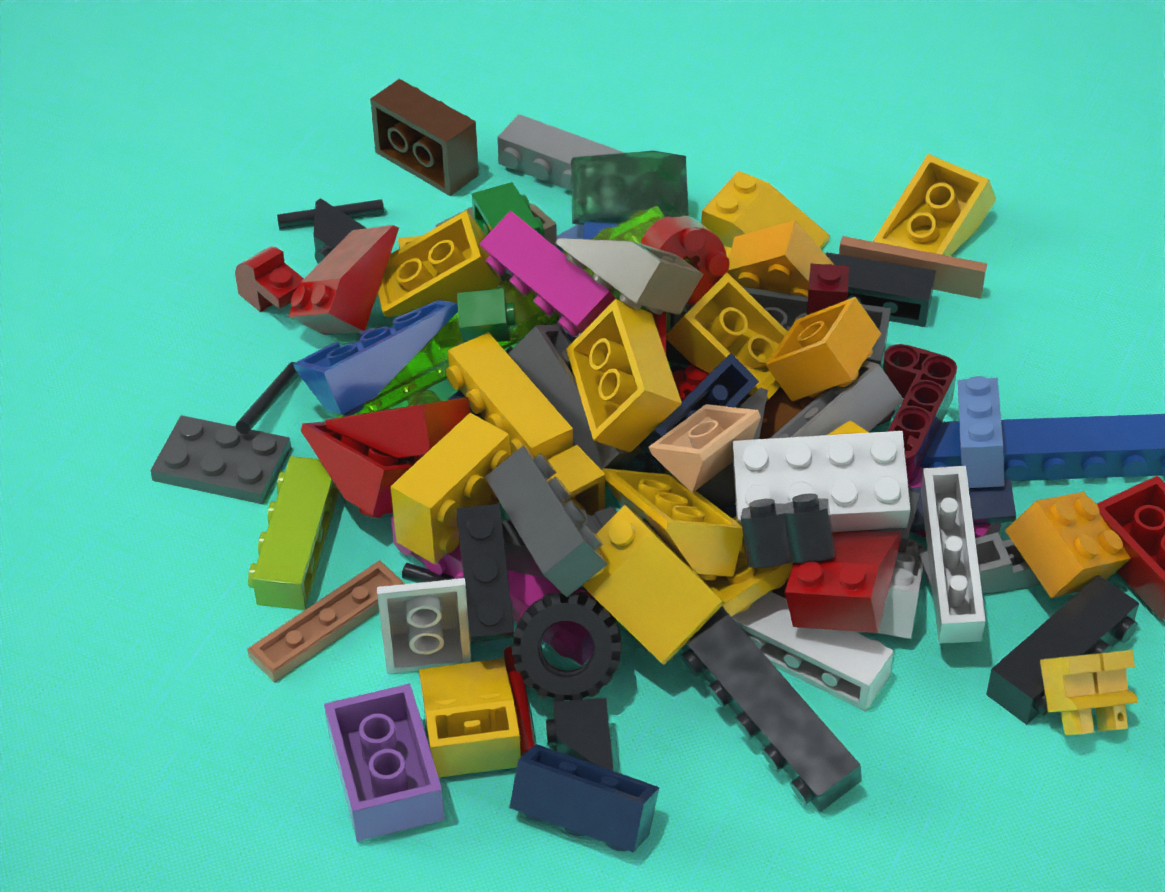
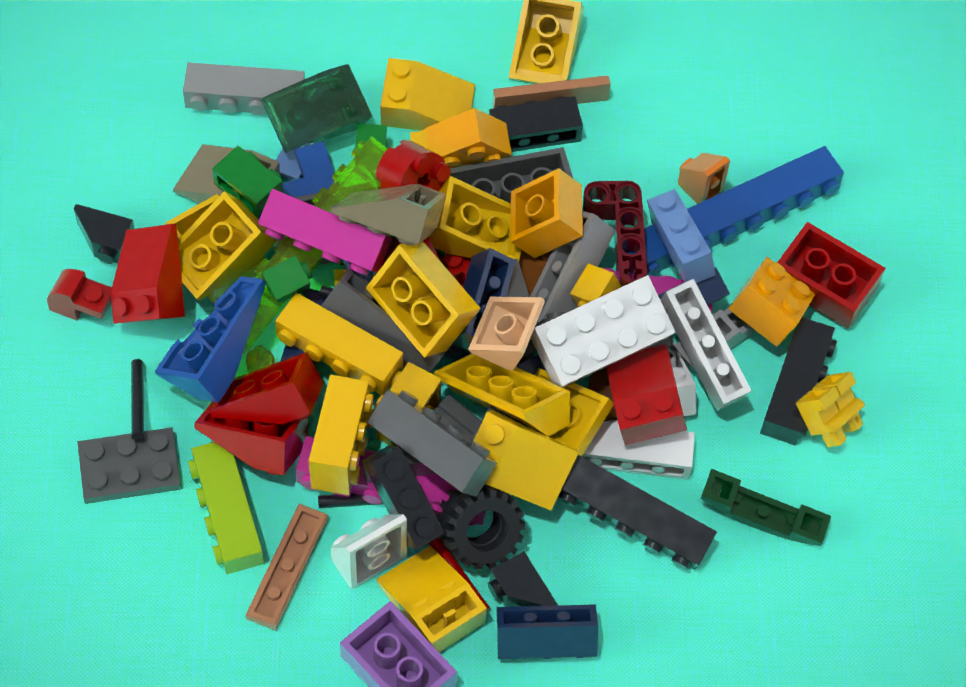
camera: 30 degrees left, 15 degrees up
(352, 210) = (91, 201): black bar -> none
(425, 137) = (124, 112): brick -> none
(788, 531) = (603, 384): black brick -> none
(826, 286) = (519, 157): dark red brick -> none
(939, 778) = (763, 512): none -> dark green slope
(1053, 394) = (703, 176): none -> orange slope

